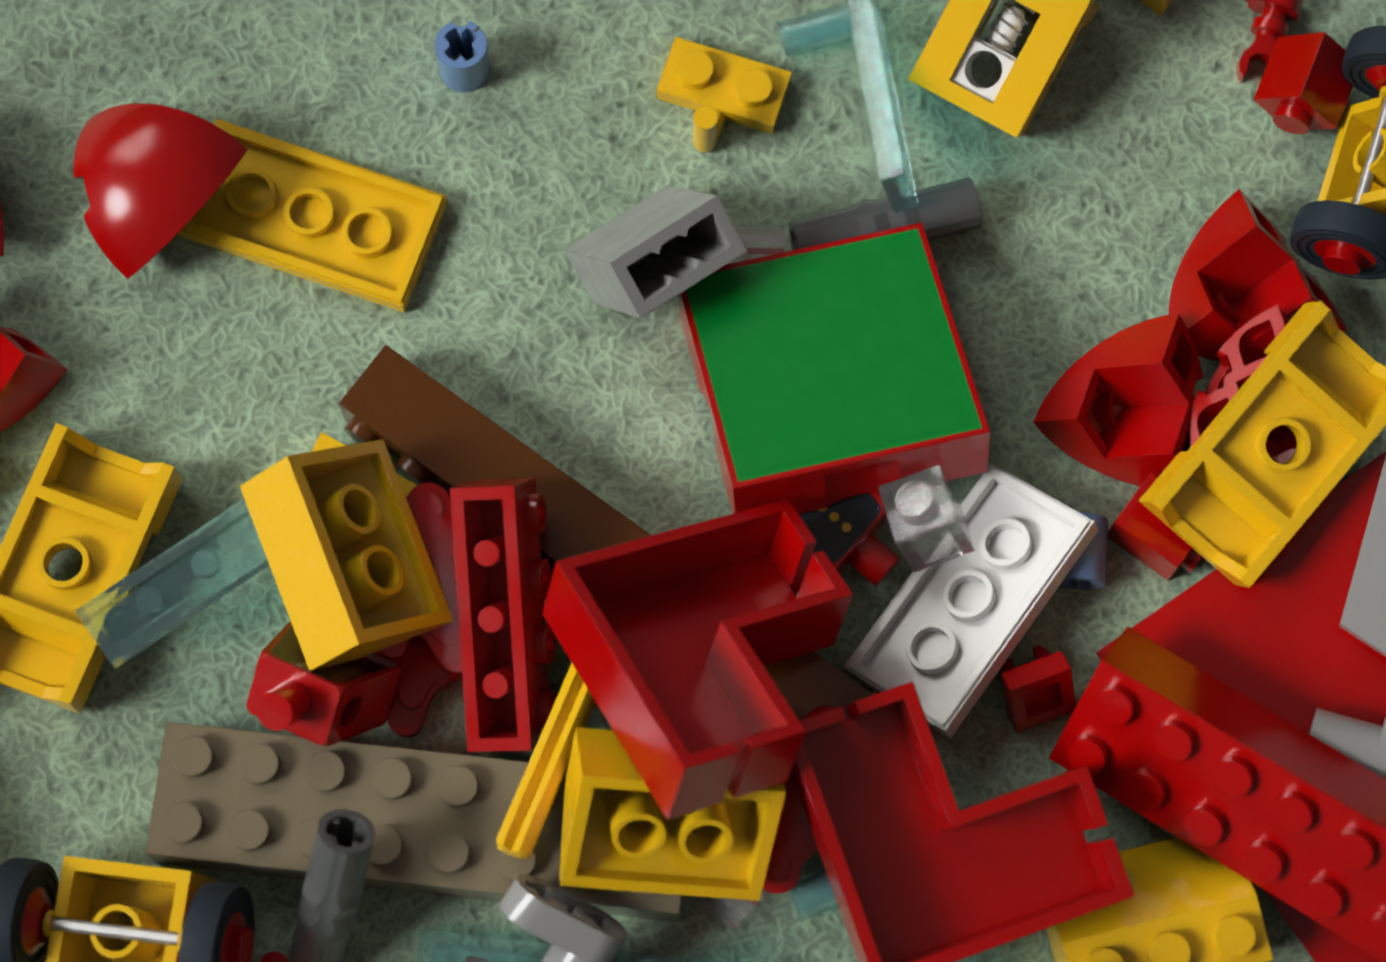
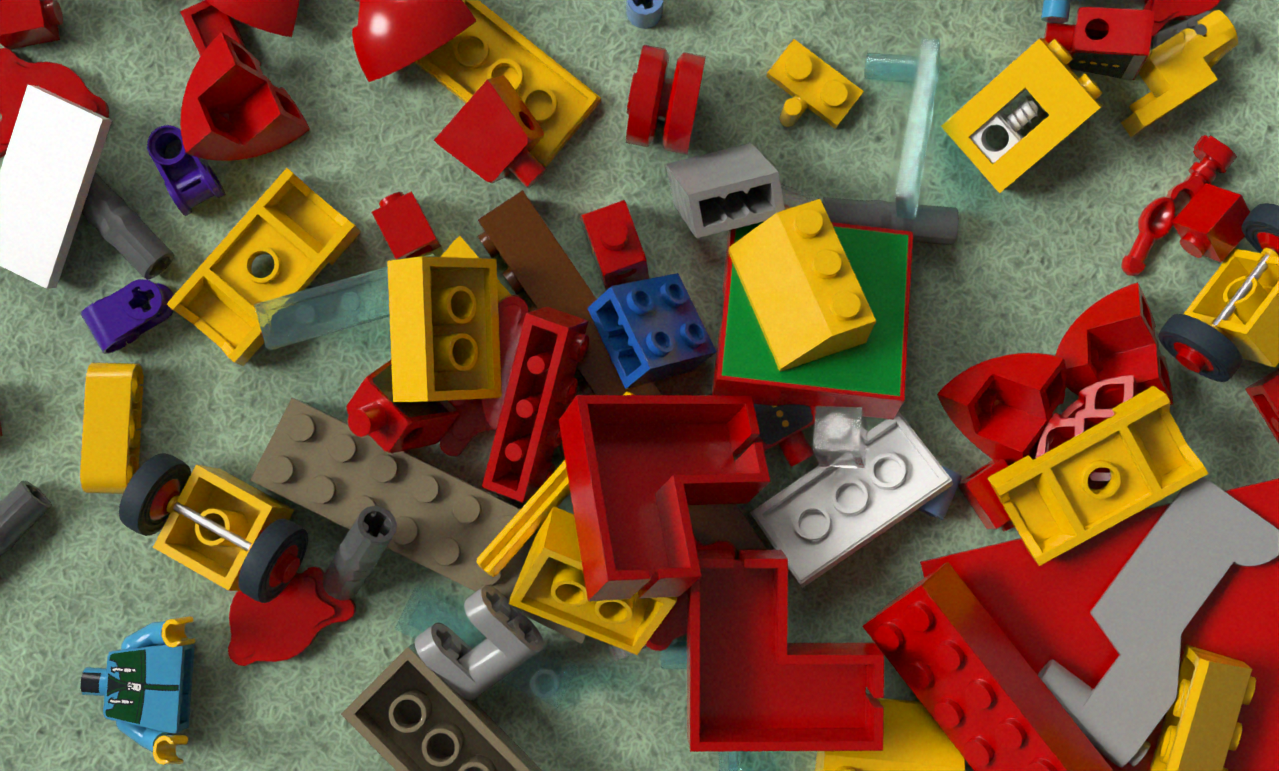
camera: 15 degrees right, 10 degrees up
(238, 443) = (405, 226): none -> red brick
(323, 287) = (495, 134): none -> red torso
(532, 375) = (615, 244): none -> red torso
(534, 165) = (664, 99): none -> red wheel
(623, 465) = (651, 330): none -> blue brick
(802, 332) = (802, 286): none -> yellow slope
(1038, 689) = (873, 574): red tile -> none
(1232, 114) = (1152, 225): none -> red piece

